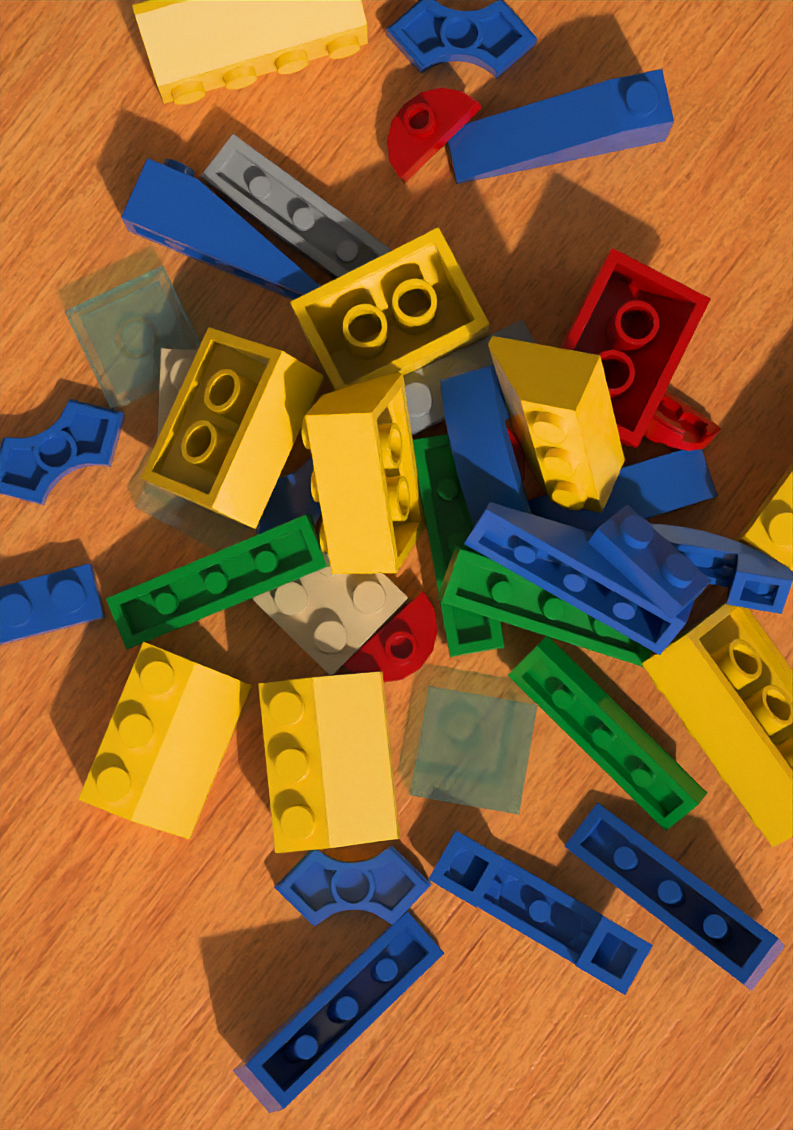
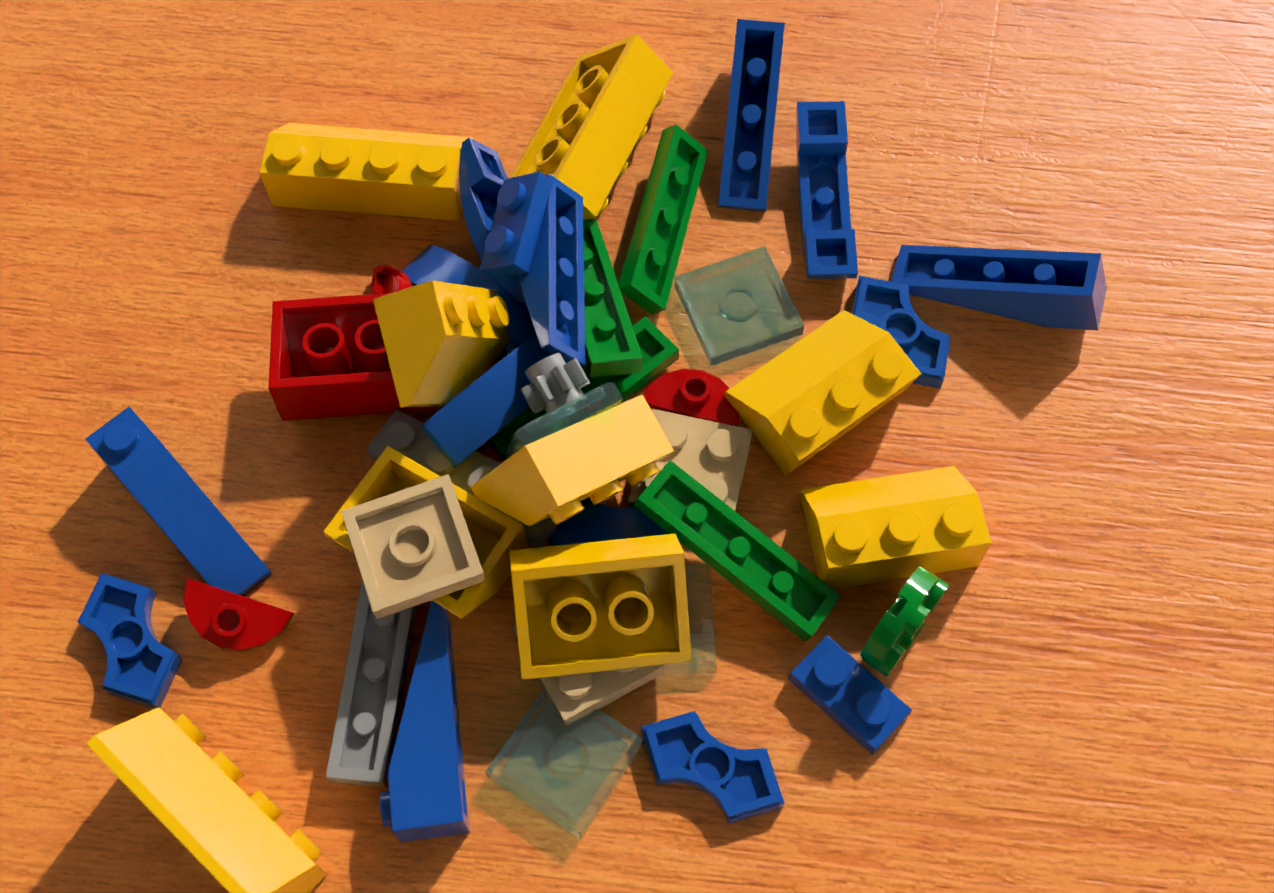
camera: 120 degrees left, 20 degrees down
(61, 671) = (903, 621): none -> green plate
(368, 289) = (412, 546): none -> tan plate
(410, 484) = (571, 413): none -> clear light blue tile
(450, 498) = (553, 383): none -> light grey gear

